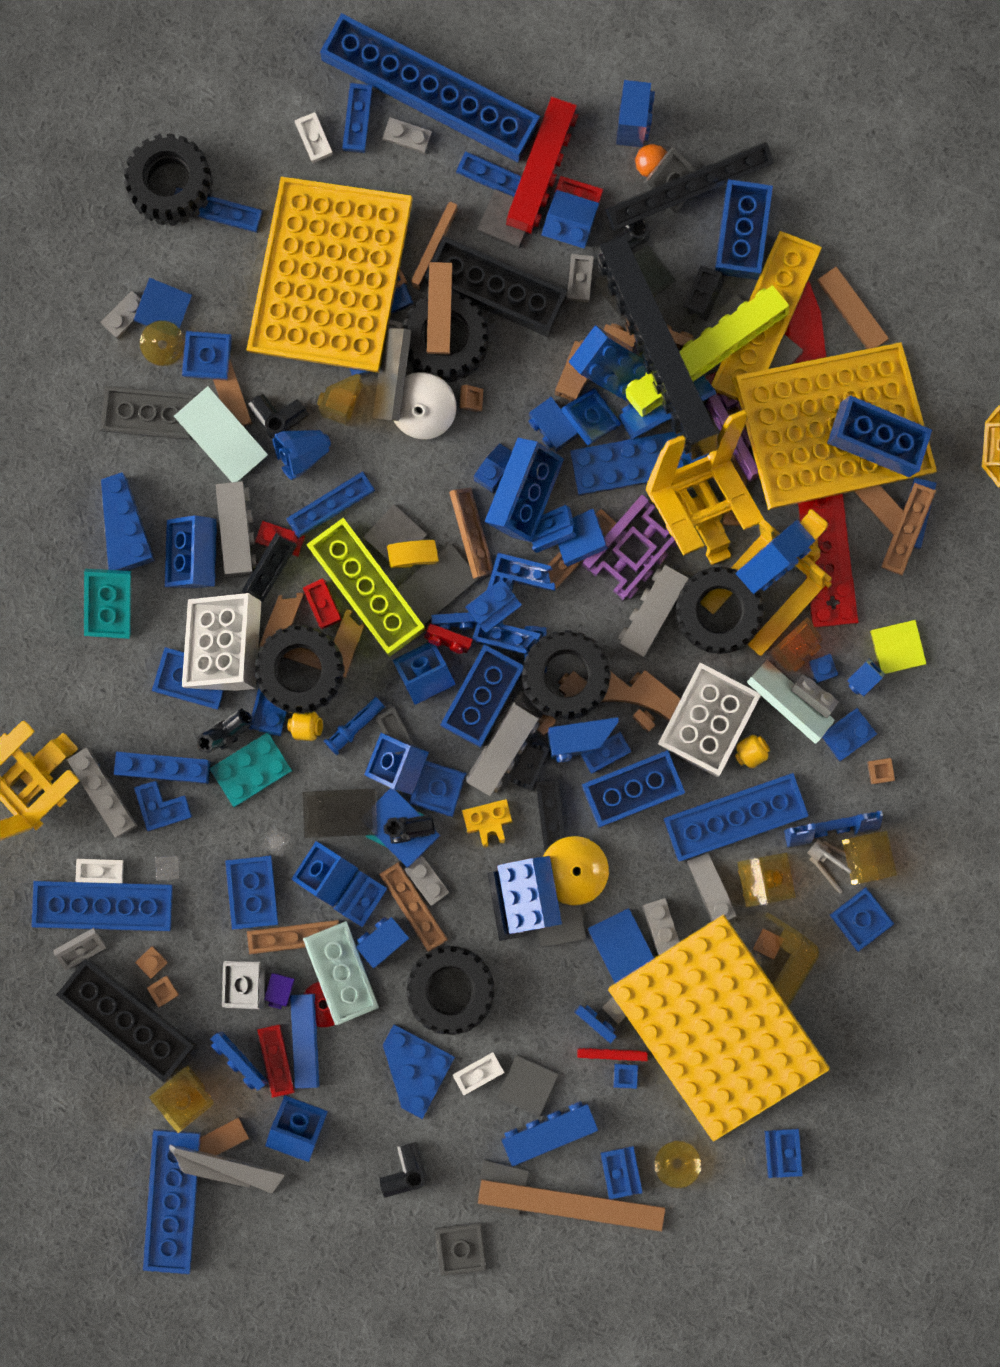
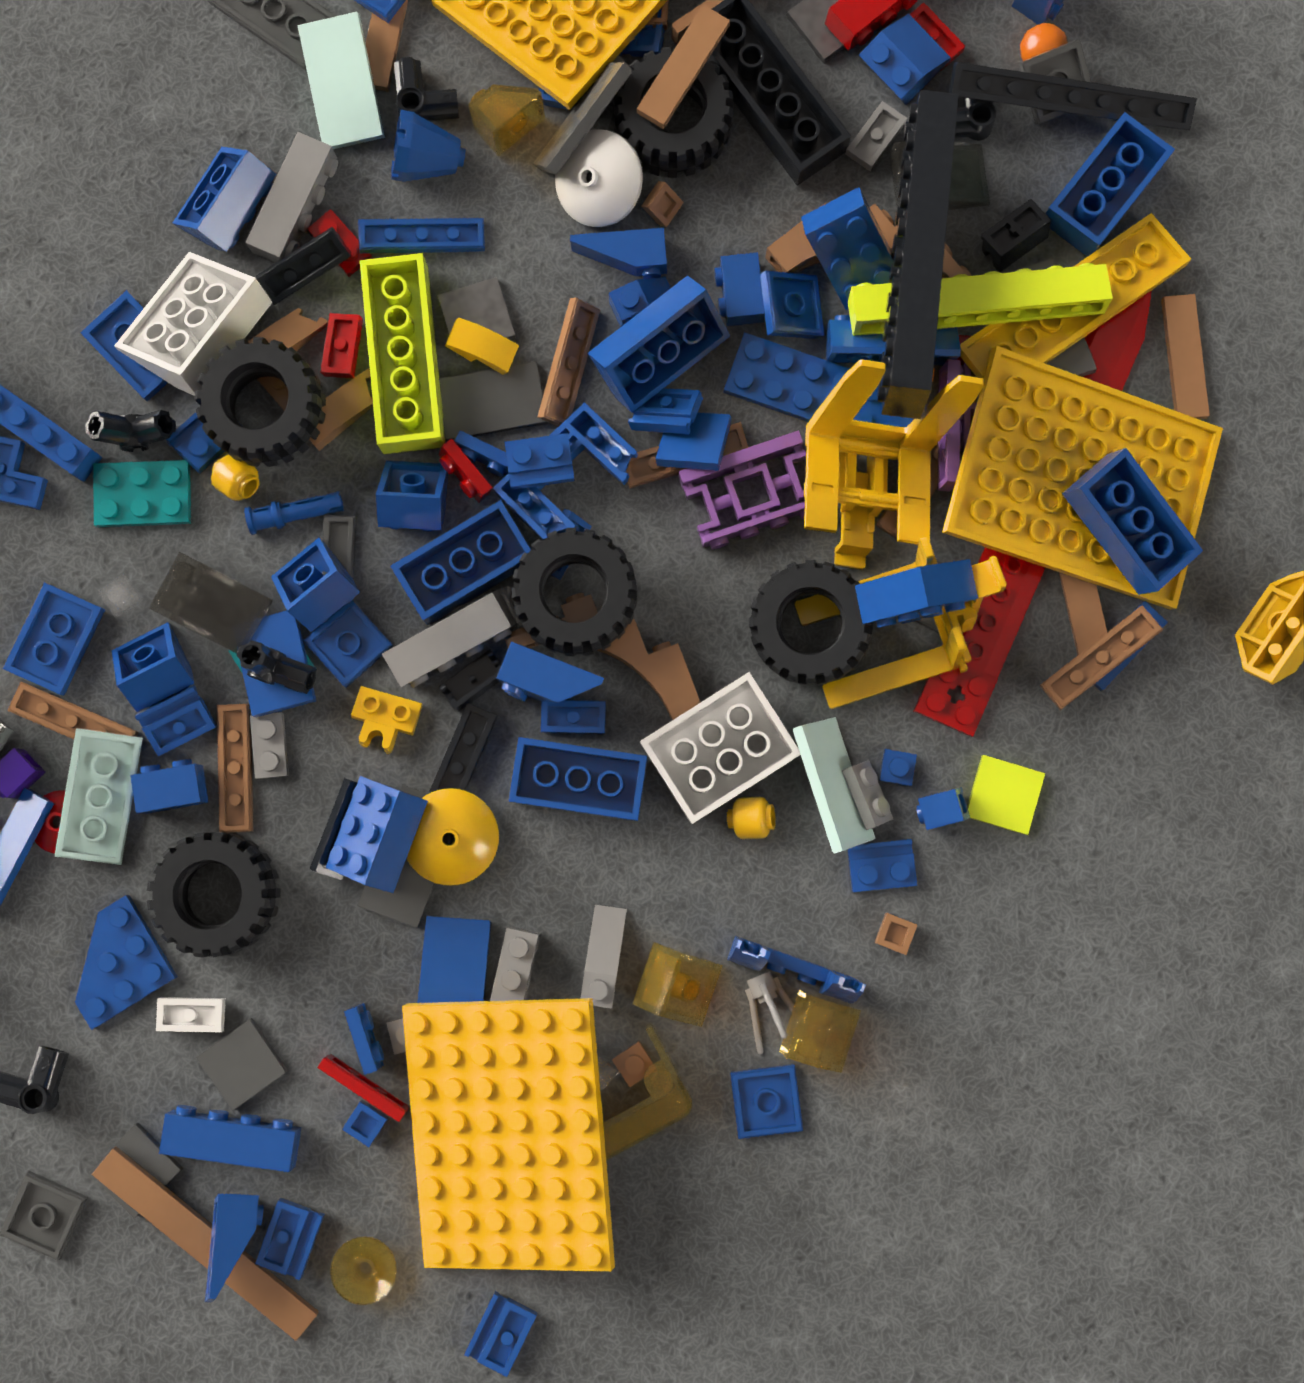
camera: 35 degrees right, 0 degrees up
(107, 603) = (88, 199): teal plate -> none
(124, 530) = (163, 122): blue wedge -> none
(469, 440) = (631, 251): none -> blue slope
(584, 1185) = (232, 1228): none -> blue slope
(644, 719) = (643, 703): medium nougat plate -> none
(653, 612) = (729, 580): light grey brick -> none
(735, 817) = (685, 886): blue plate -> none
(797, 645) = (881, 721): clear orange slope -> none

